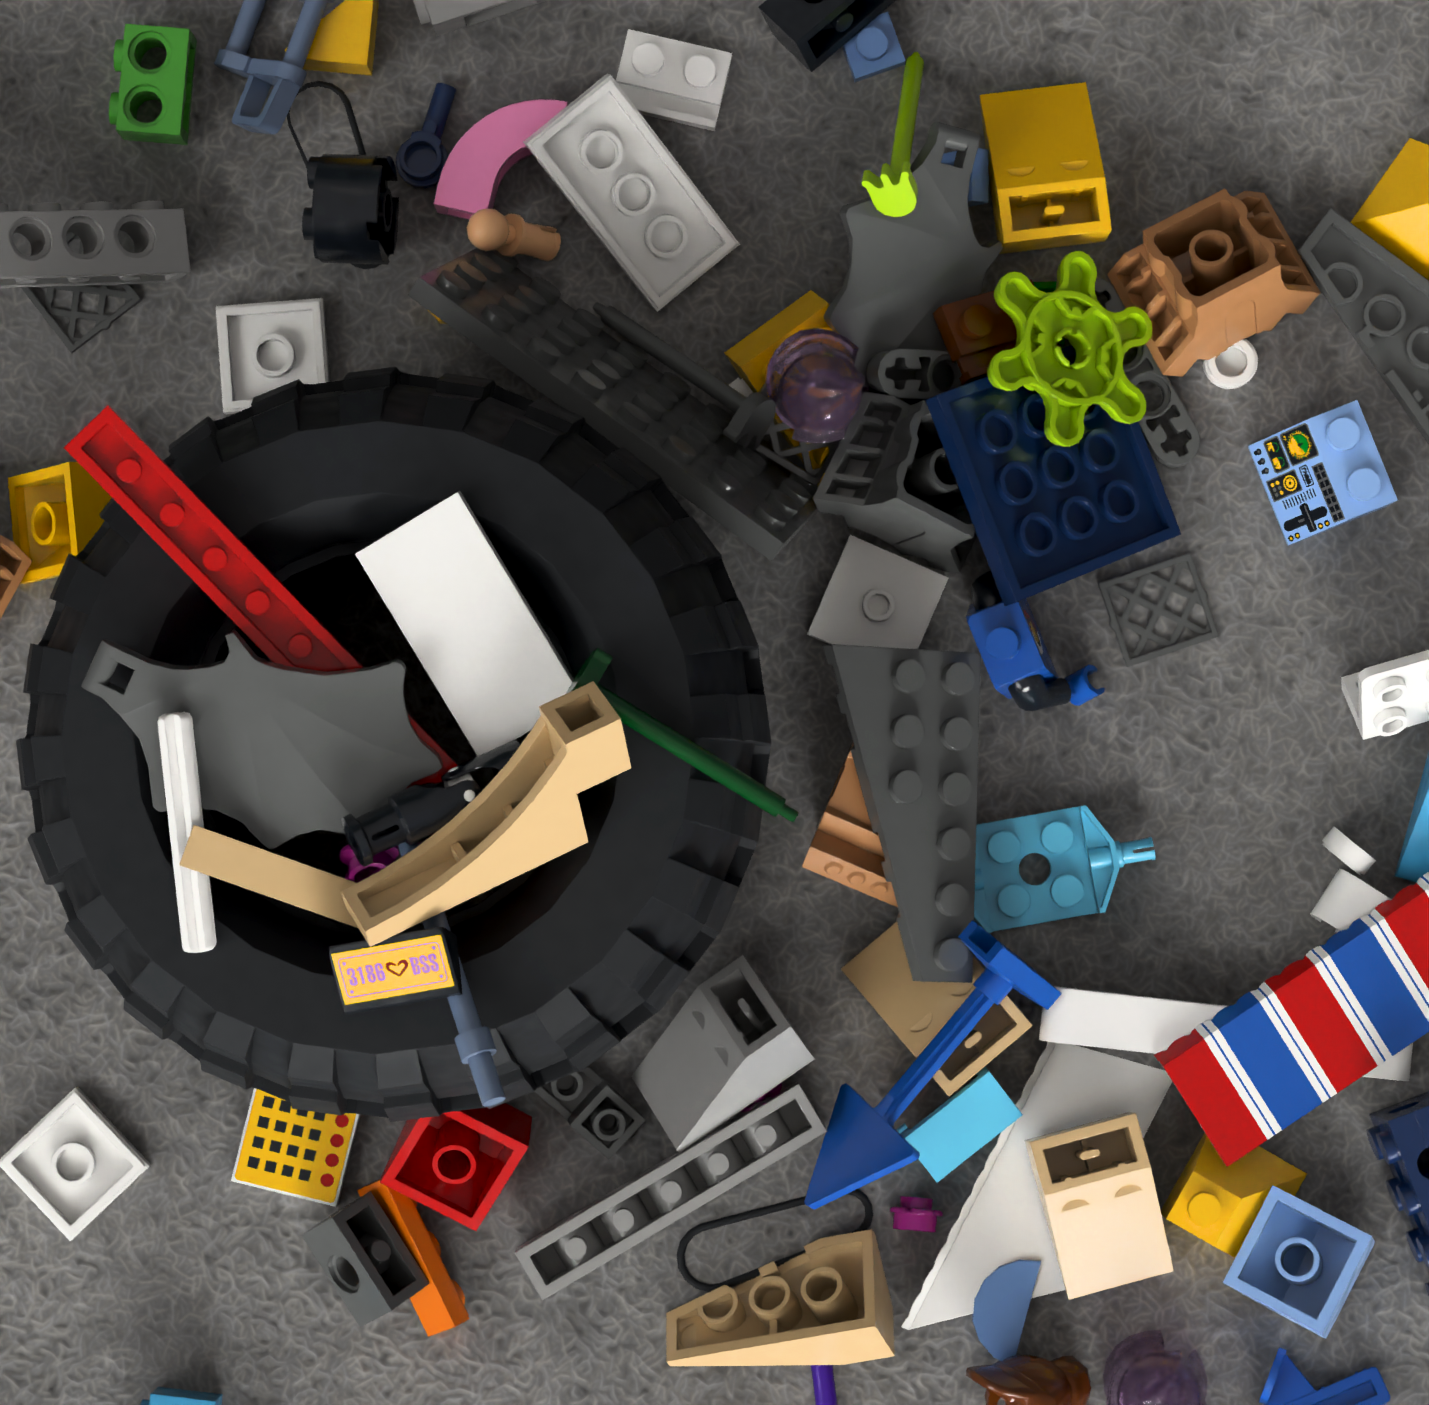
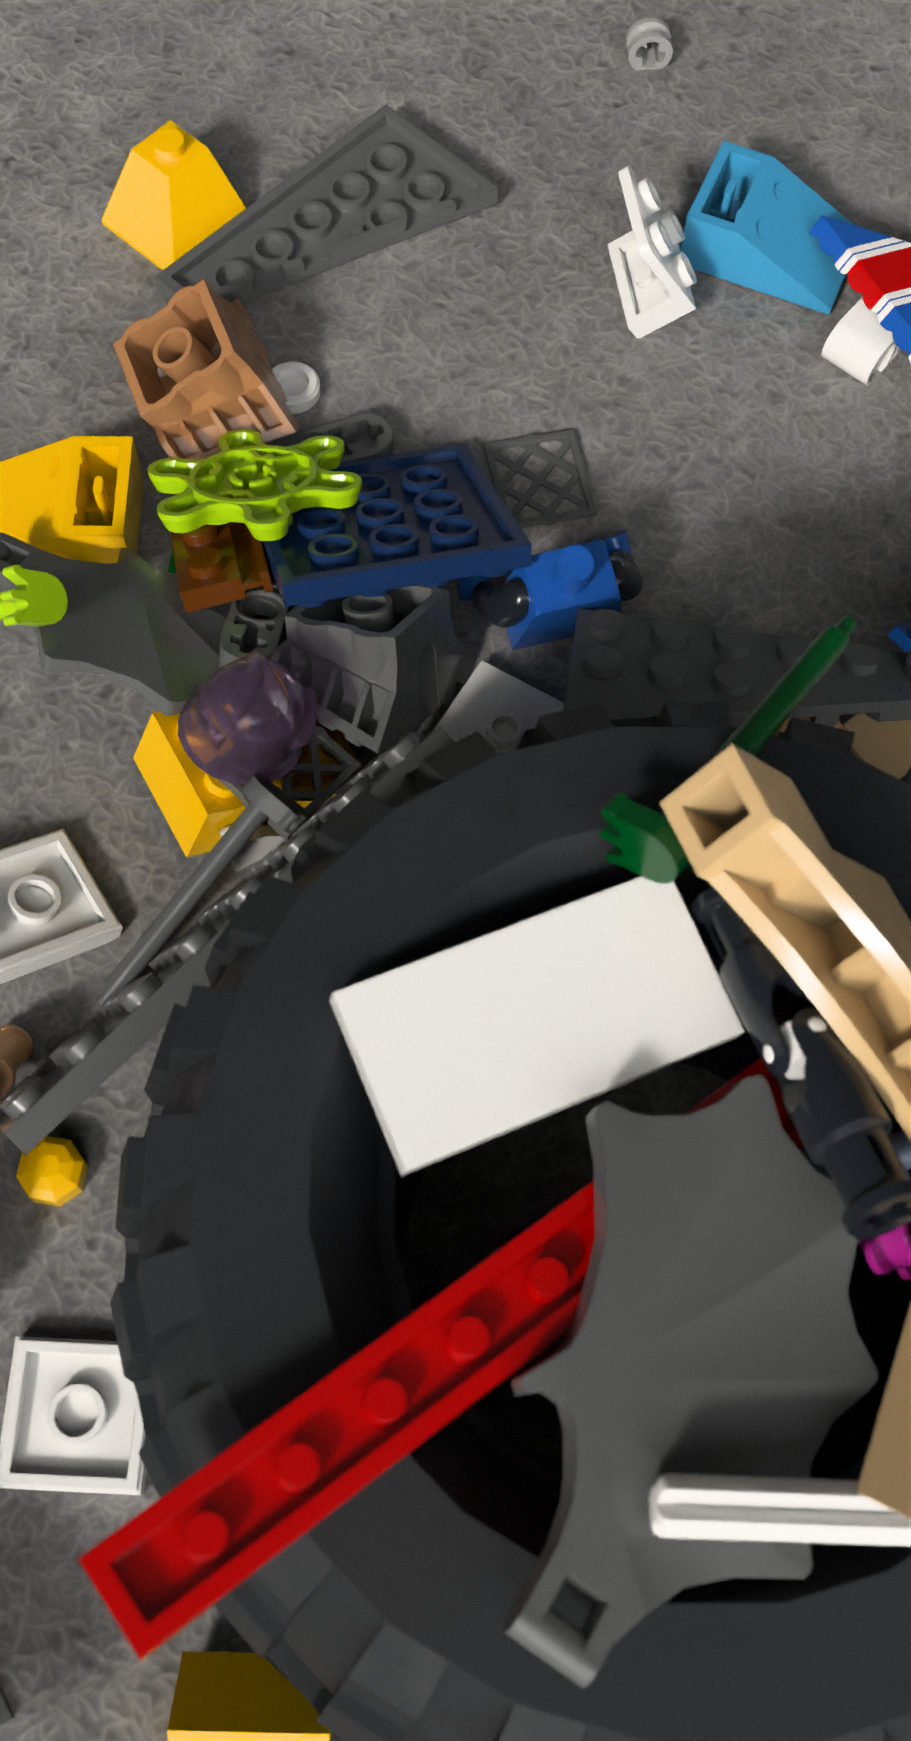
camera: 90 degrees left, 20 degrees down
(1080, 861) = (805, 572): medium azure plate -> none
(1322, 472) = (420, 311): light blue slope -> none
(1348, 851) = (805, 340): white tile -> none

